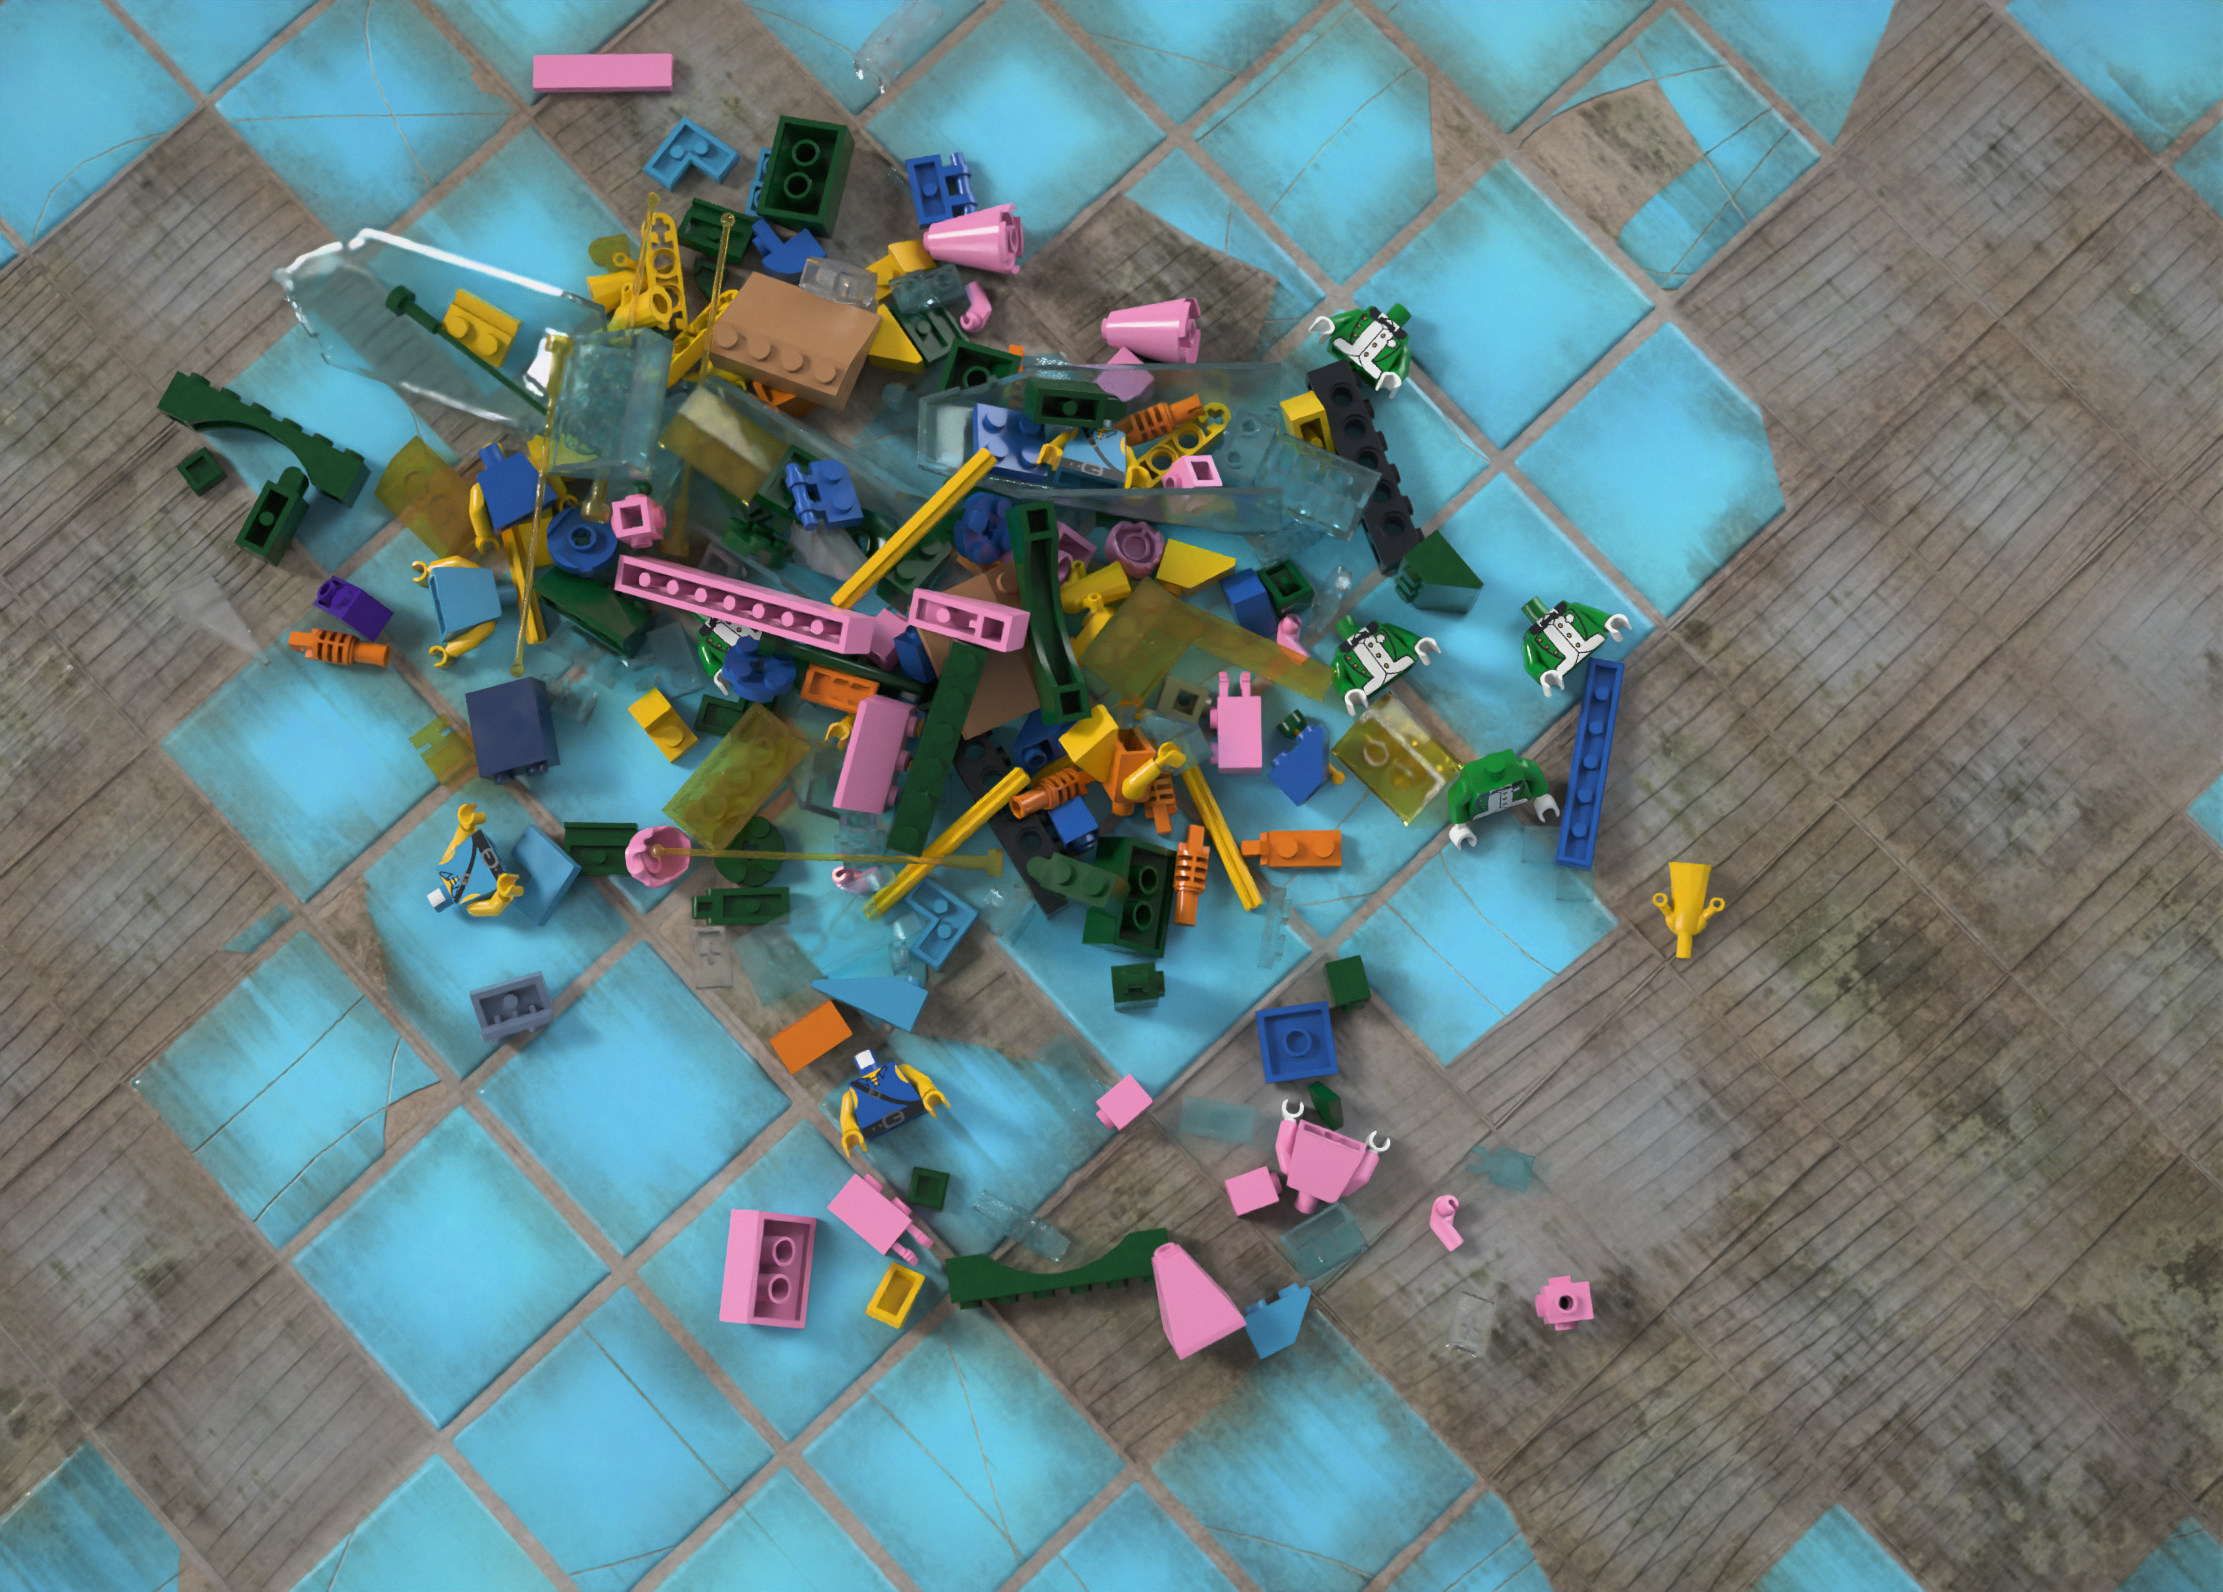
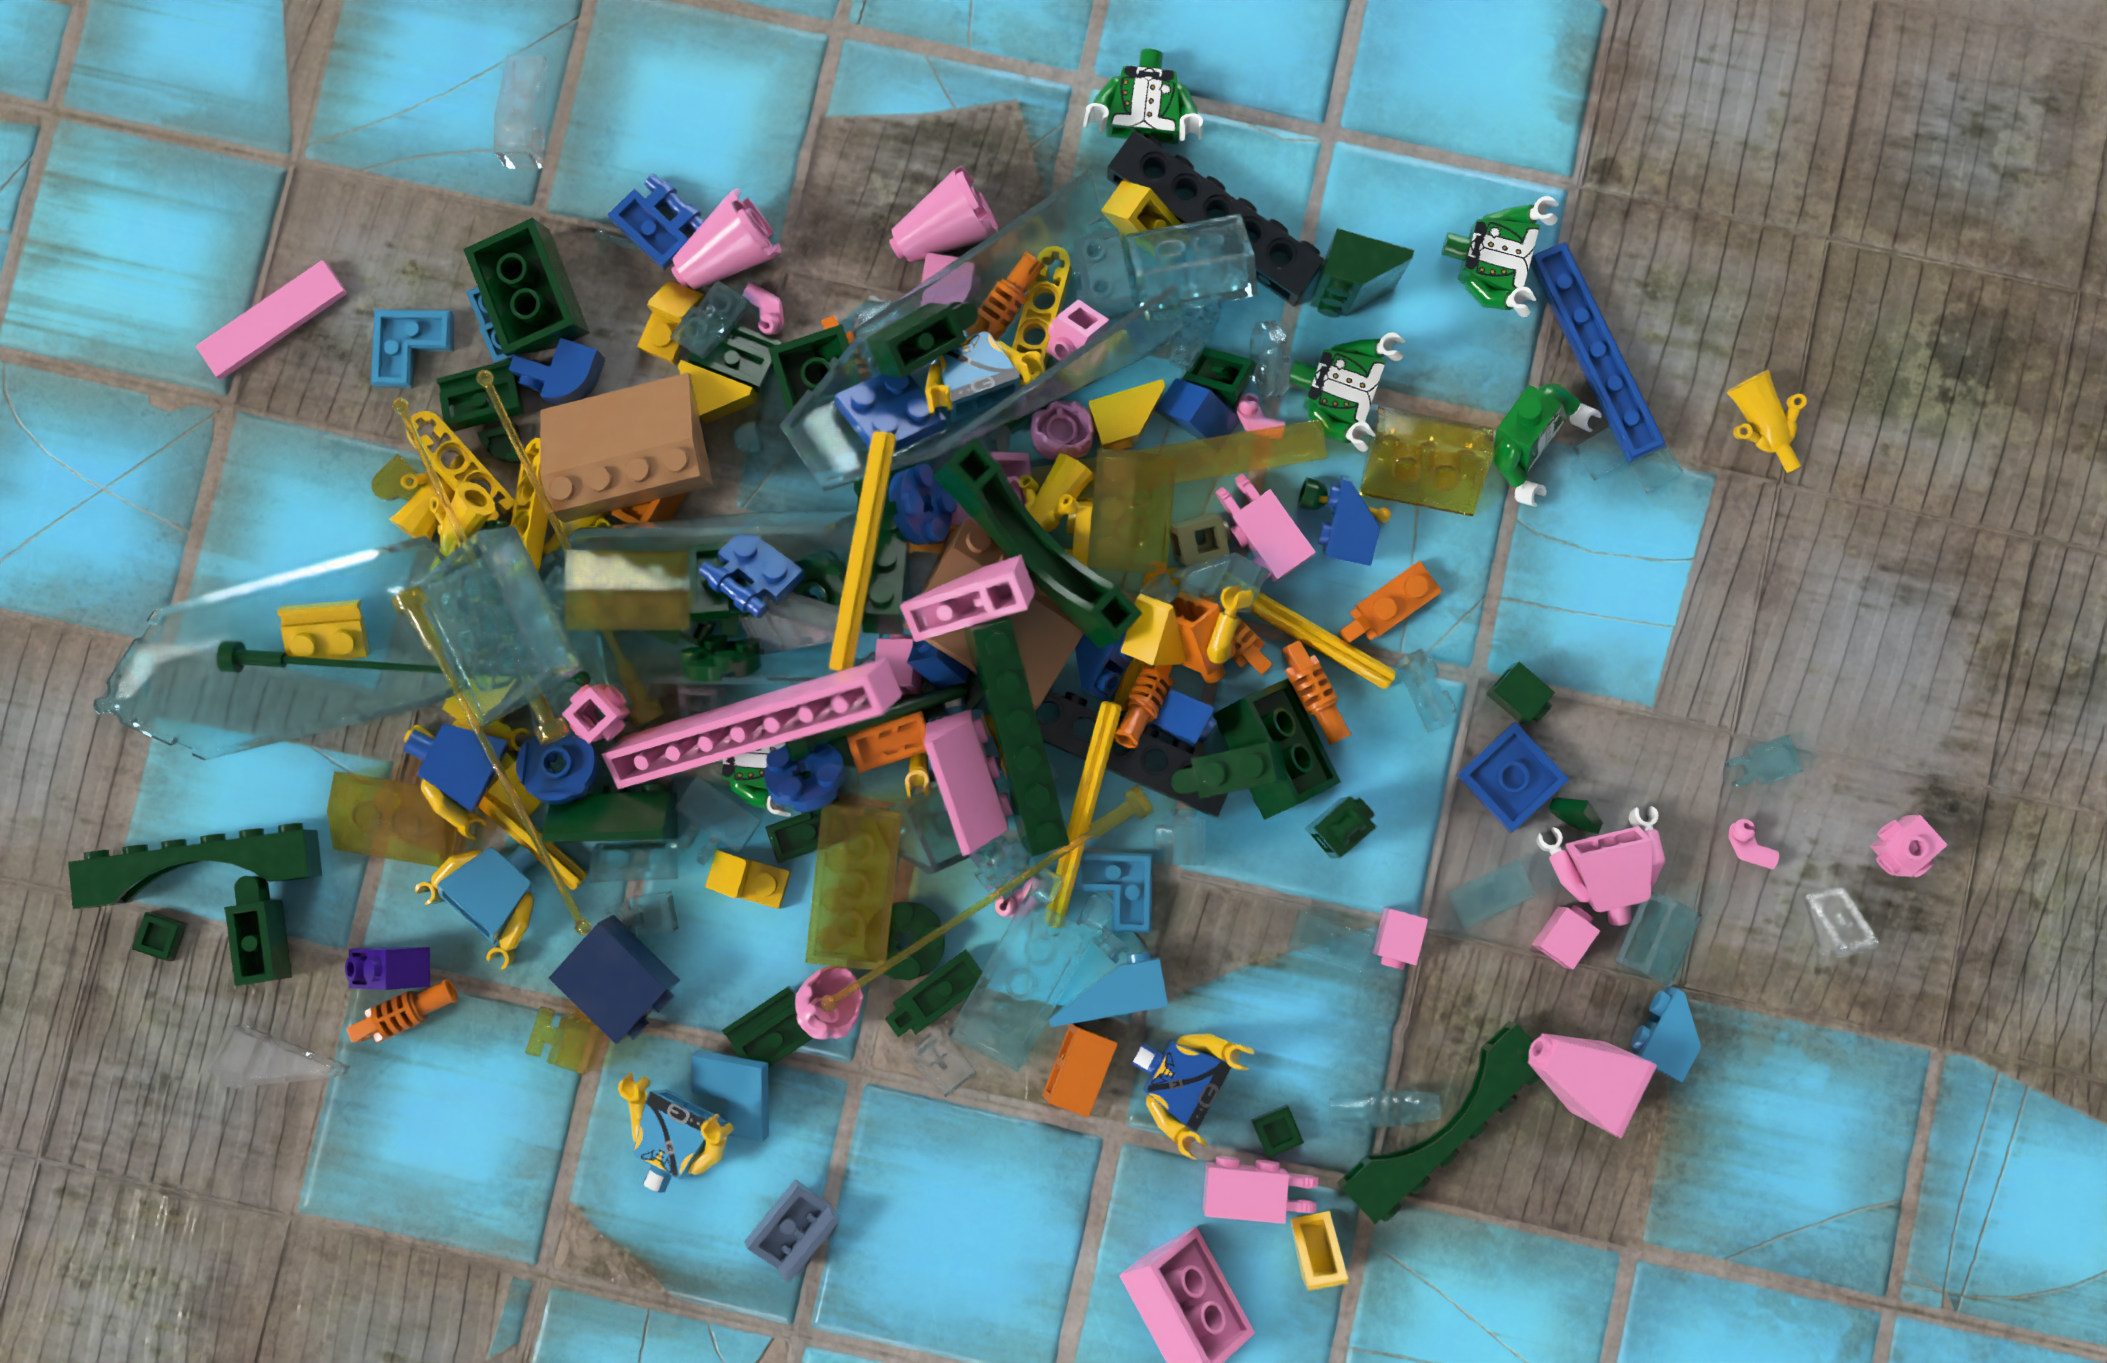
camera: 30 degrees left, 5 degrees up
(838, 281) = (625, 367): clear brick -> none

